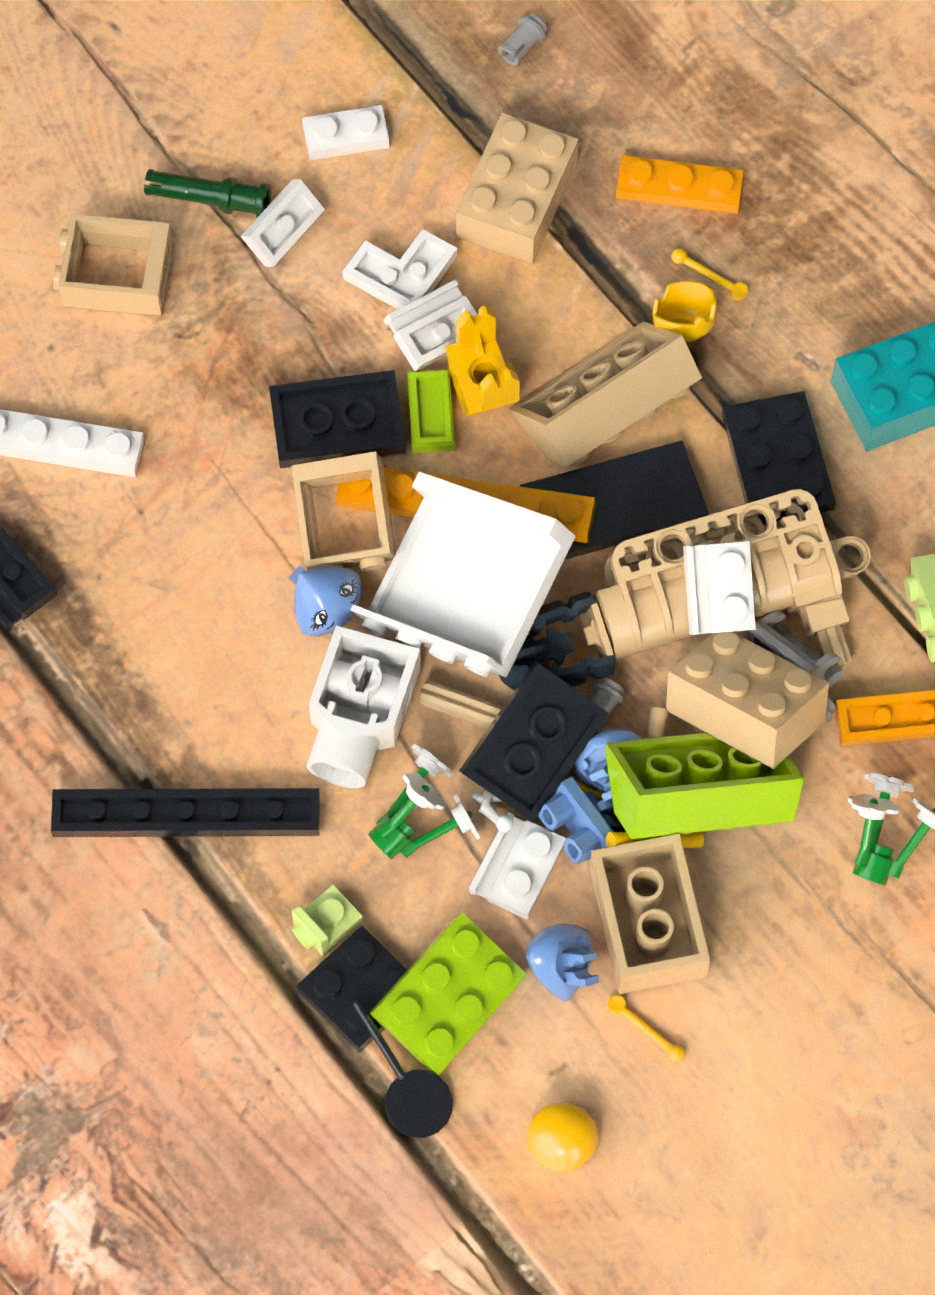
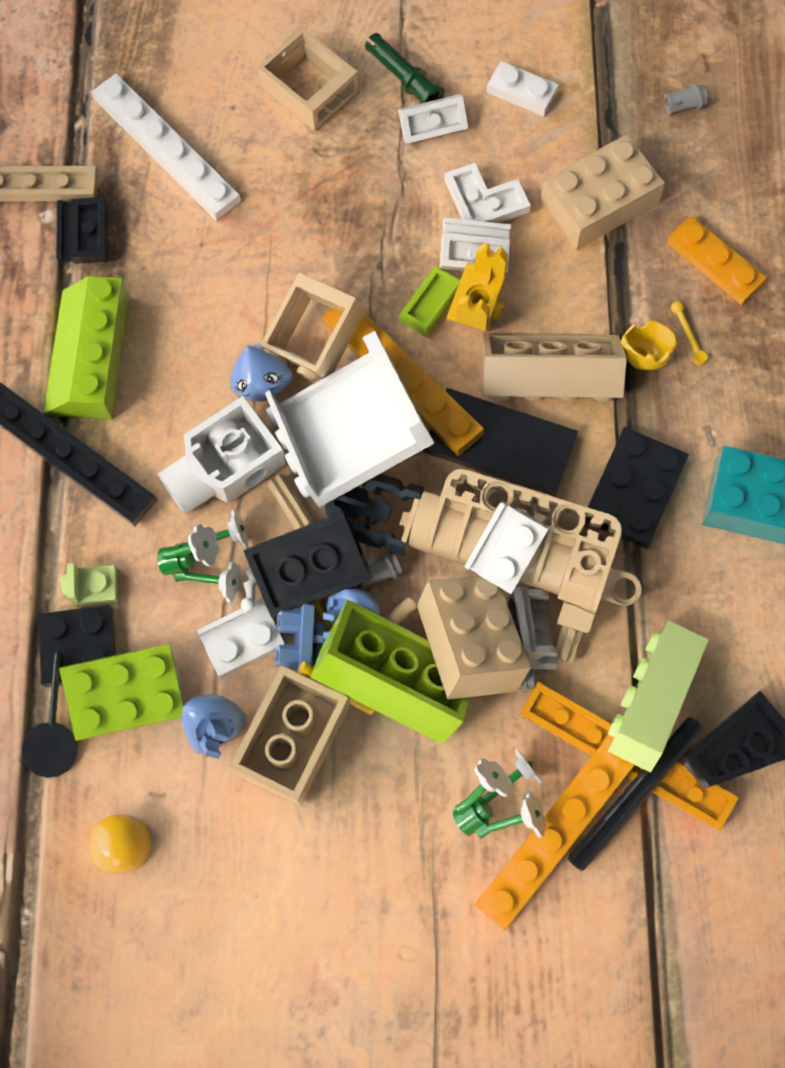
camera: 40 degrees right, 5 degrees up
(117, 696) = (88, 349): none -> lime slope
(337, 418) = (365, 266): black plate -> none
(617, 1006) = (228, 780): yellow hinge -> none

